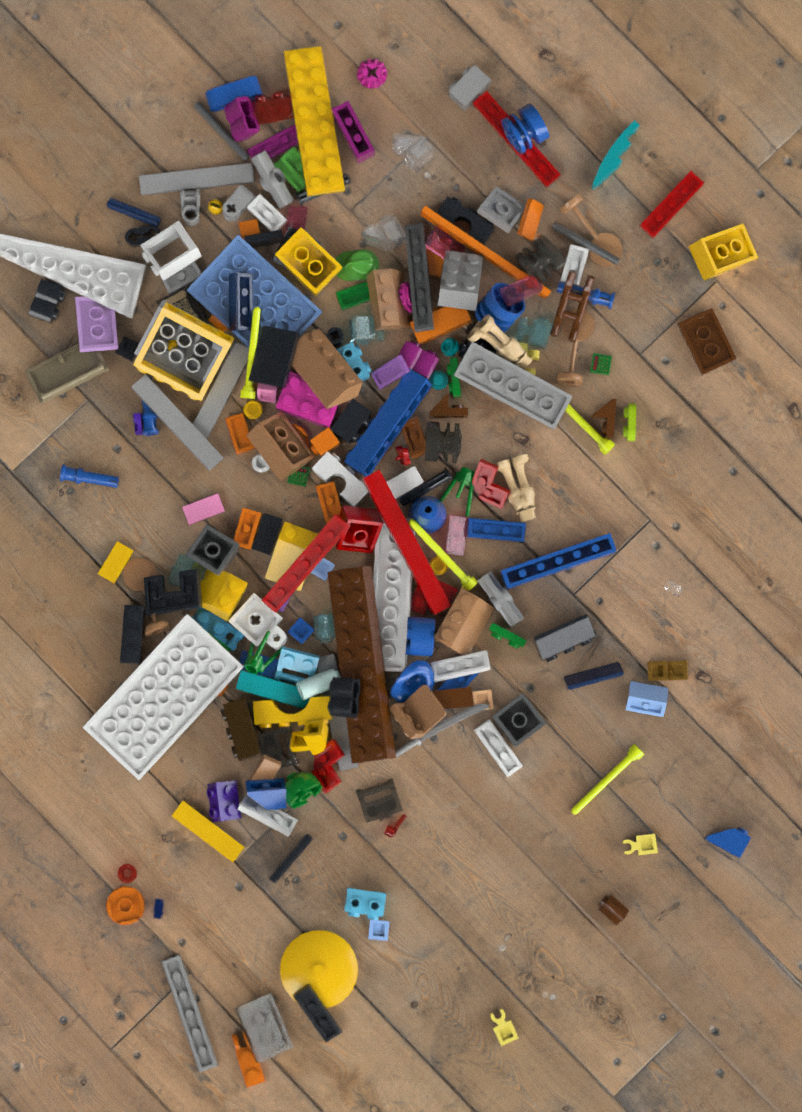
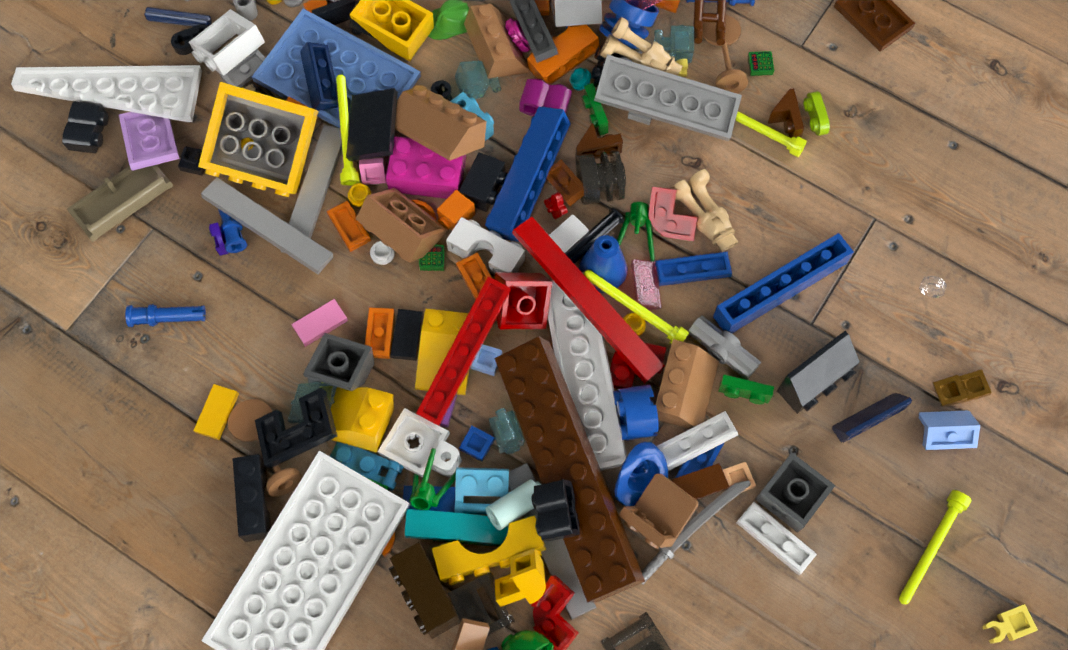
camera: 10 degrees left, 15 degrees down
(353, 296) = (454, 51): green tile -> none
(390, 372) = (517, 117): medium lavender tile -> none
(438, 380) = (578, 117): teal plate -> none

